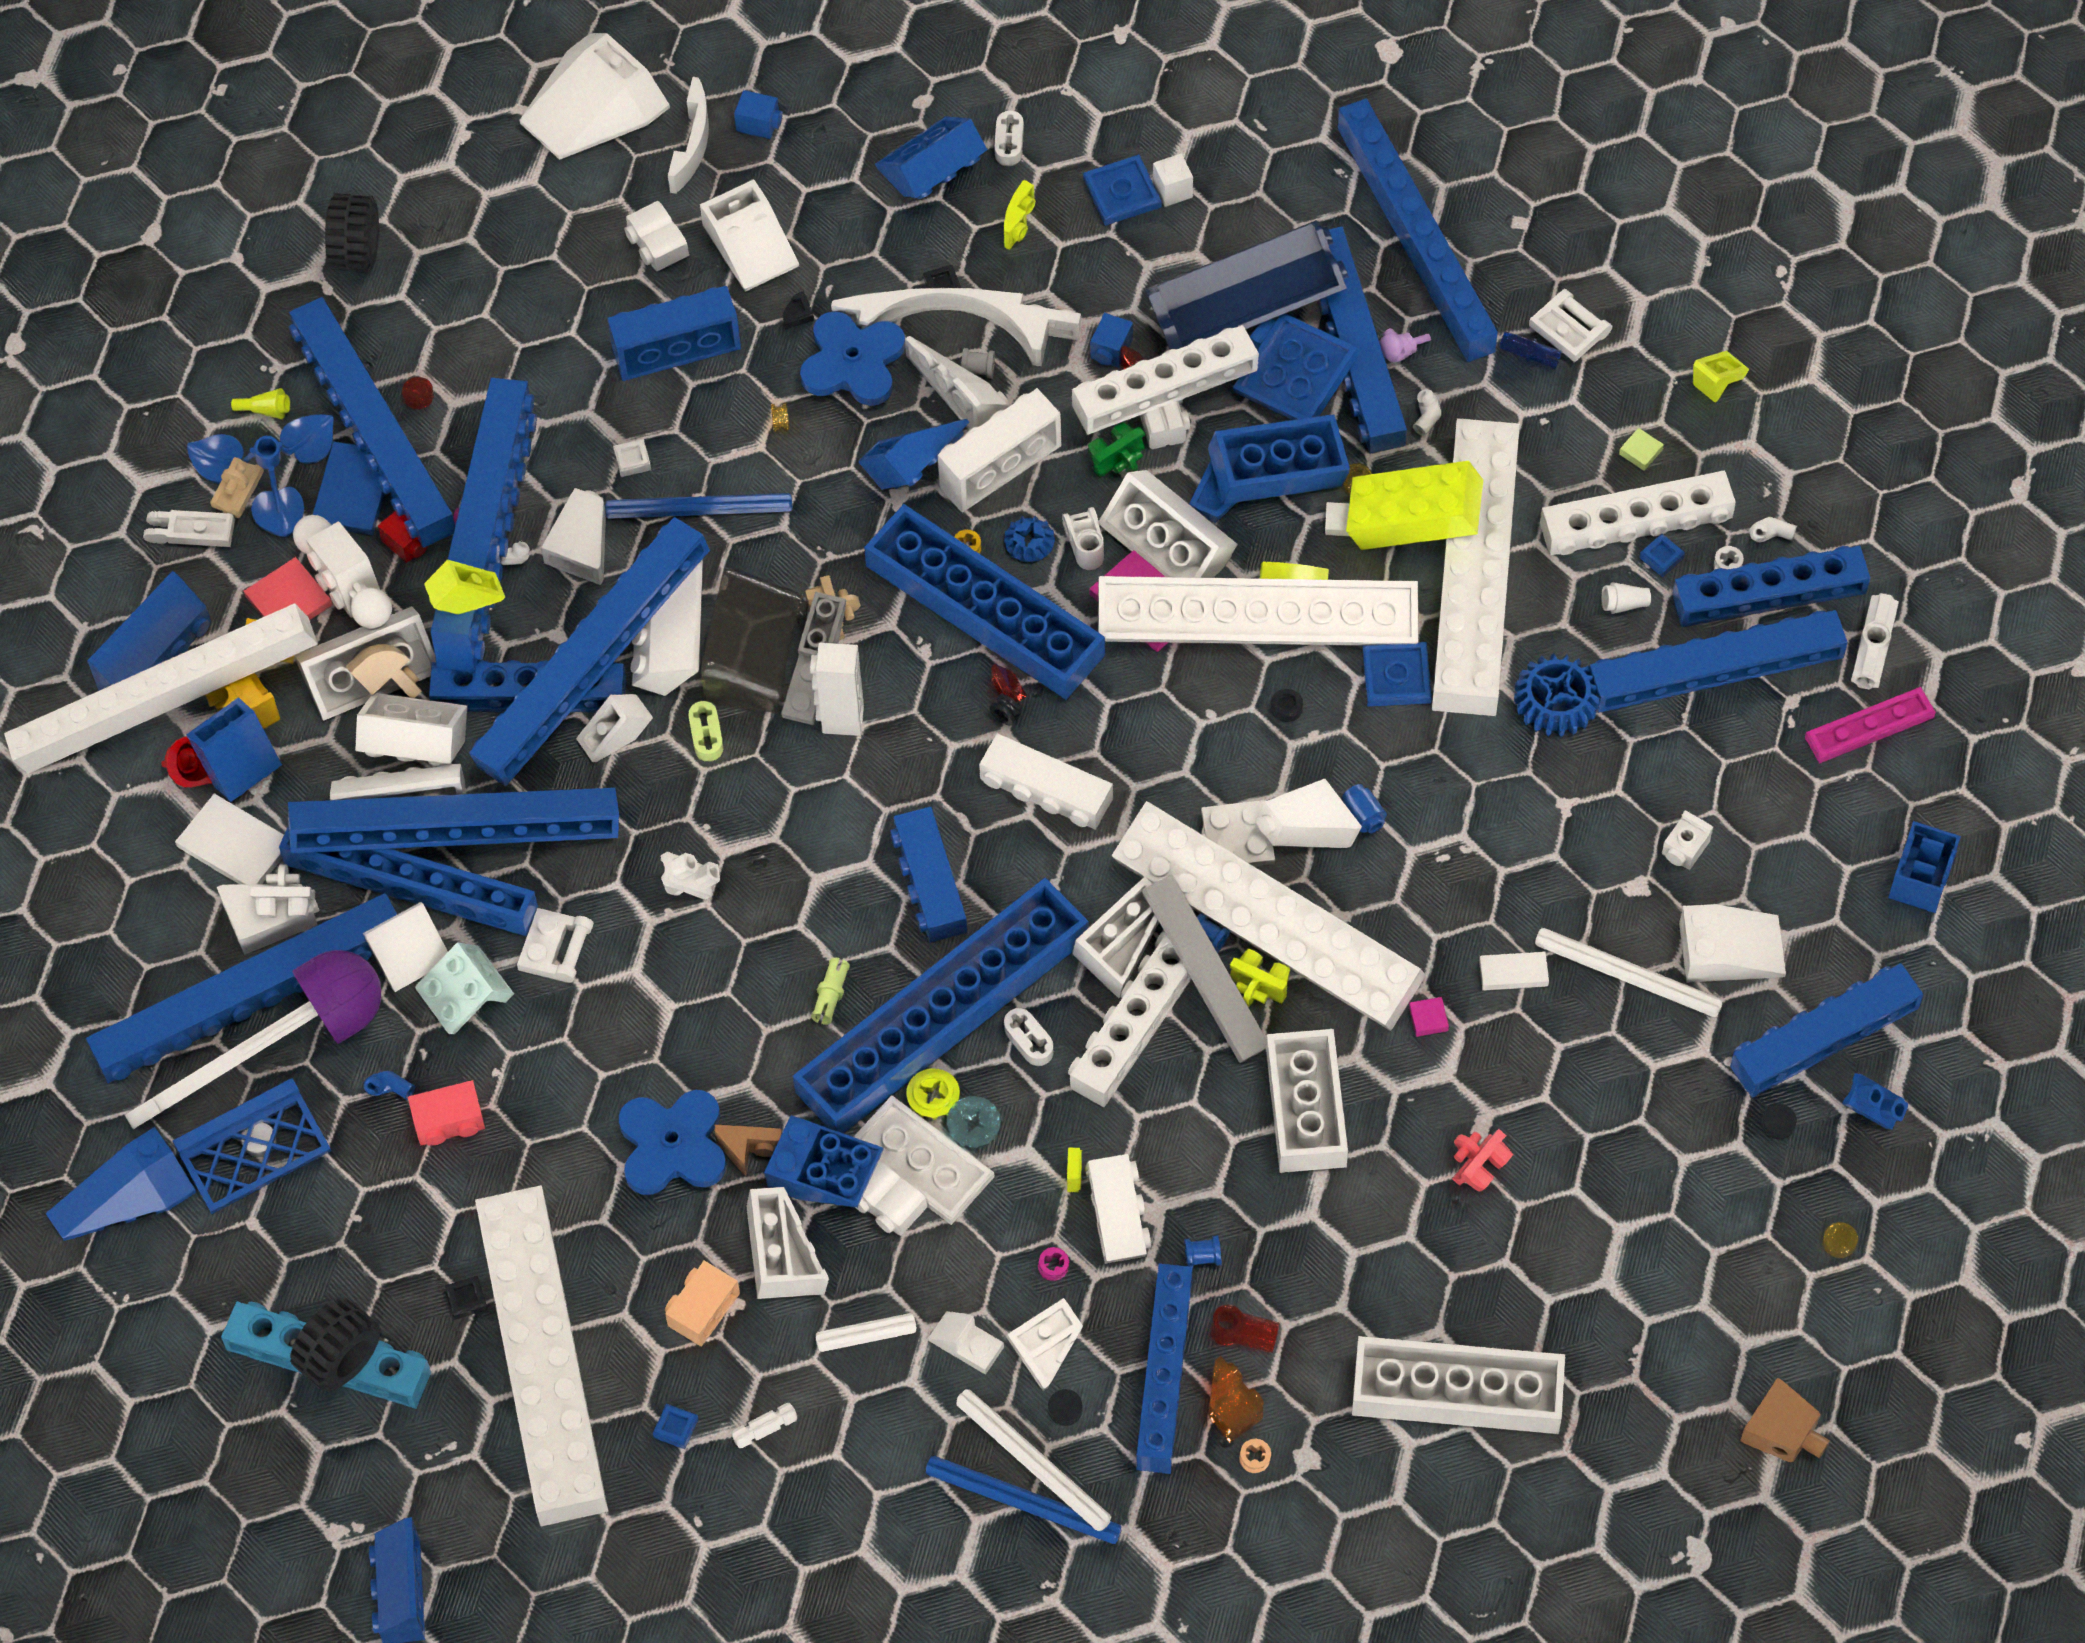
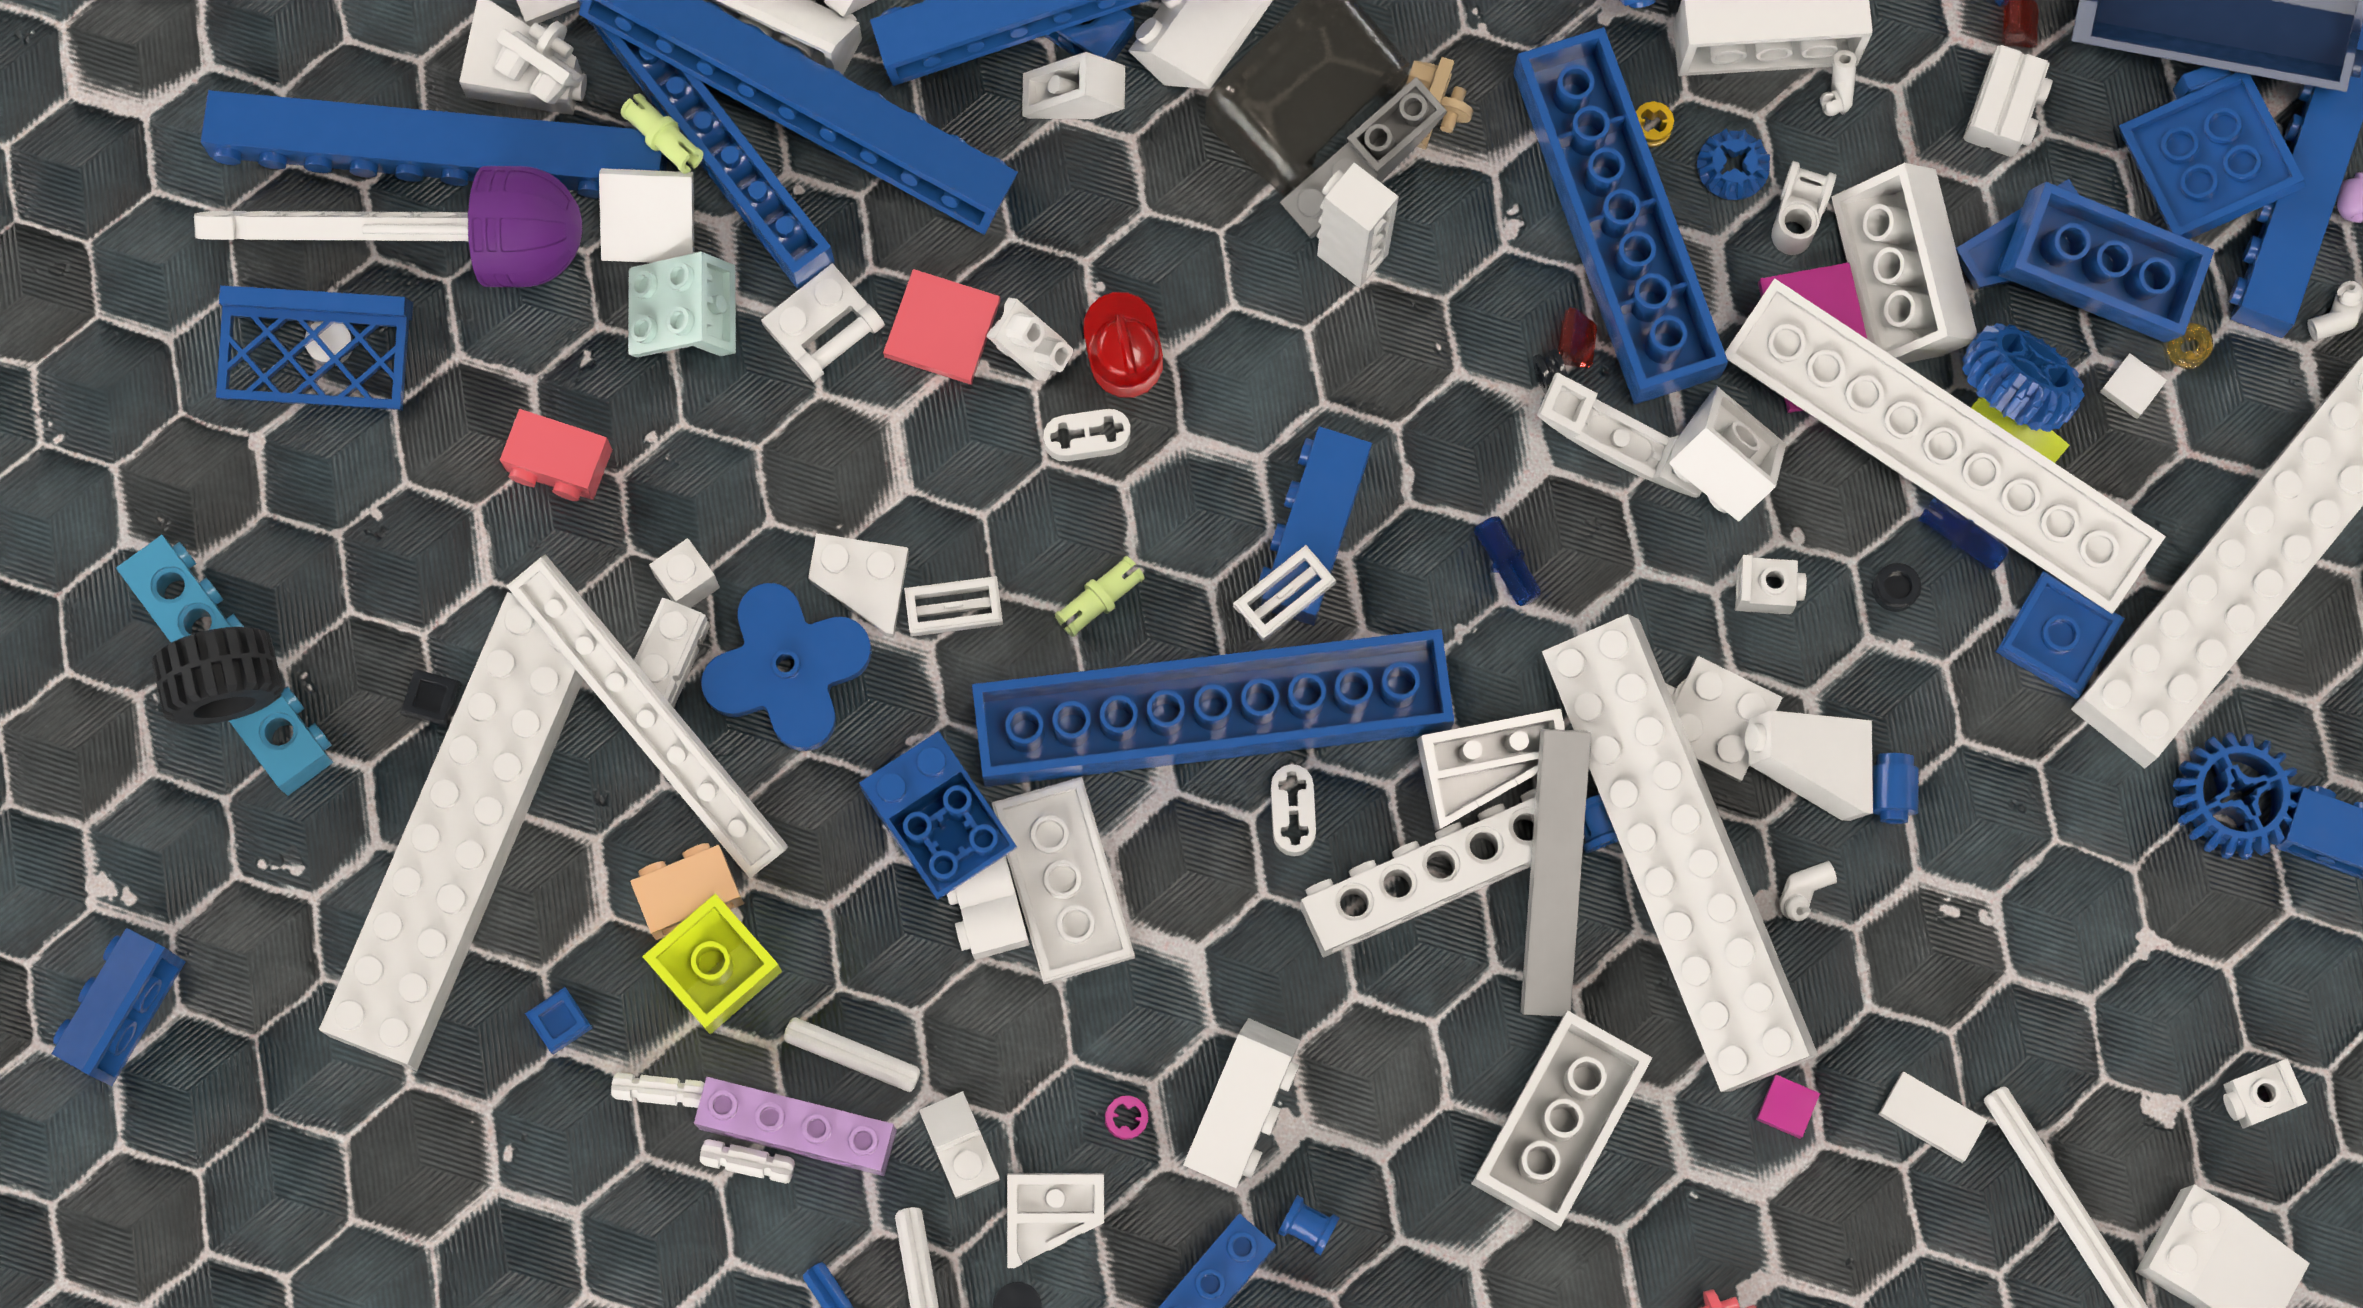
camera: 30 degrees right, 15 degrees up
(130, 1184) = (143, 304): blue wedge -> none
(386, 891) = (662, 133): none -> yellowish green pin
(388, 1082) = (517, 369): blue arm -> none
(574, 1130) = (684, 575): none -> white brick
(595, 1179) = (671, 647): none -> white brick
(610, 1214) = (647, 716): none -> white tile
(628, 904) = (942, 326): none -> coral tile
(679, 1069) = (862, 577): none -> white wing
(699, 731) = (1170, 159): yellowish green beam -> none
(726, 1069) = (953, 624): none -> white tile
(740, 1140) = (863, 719): medium nougat slope -> none
(743, 849) = (1123, 344): none -> red piece
(748, 1328) = (712, 963): none -> neon yellow slope
(755, 906) = (1087, 446): none -> white beam
(780, 1250) = (819, 886): white wedge -> none
(846, 1430) = (747, 1161): none -> white axle
(862, 1389) = (795, 1126): none -> lavender brick
(928, 1081) = (1138, 786): neon yellow gear -> none
(932, 939) = (1254, 618): none -> white tile
(968, 1108) = (1158, 853): clear light blue gear -> none
(1046, 782) = (1534, 497): white brick -> none
(1055, 825) = (1507, 561): none -> clear blue axle
(1061, 460) = (1842, 84): none -> white arm
(1074, 1169) = (1228, 1018): neon yellow tile -> none
(1076, 721) = (1611, 434): none -> white slope
(1120, 454) = (1919, 127): green hips -> none
(1140, 691) = (1728, 455): none -> white slope
(1156, 392) = (2014, 78): white brick -> none
(1210, 754) = (1755, 594): none -> white brick
(1257, 983) = (1605, 903): neon yellow hips -> none
(1276, 546) = (2023, 377): none -> blue gear
(1304, 652) = (1965, 534): none -> clear blue axle
(1350, 895) = (1800, 889): none -> white arm
(1415, 505) = (2231, 437): neon yellow brick -> none

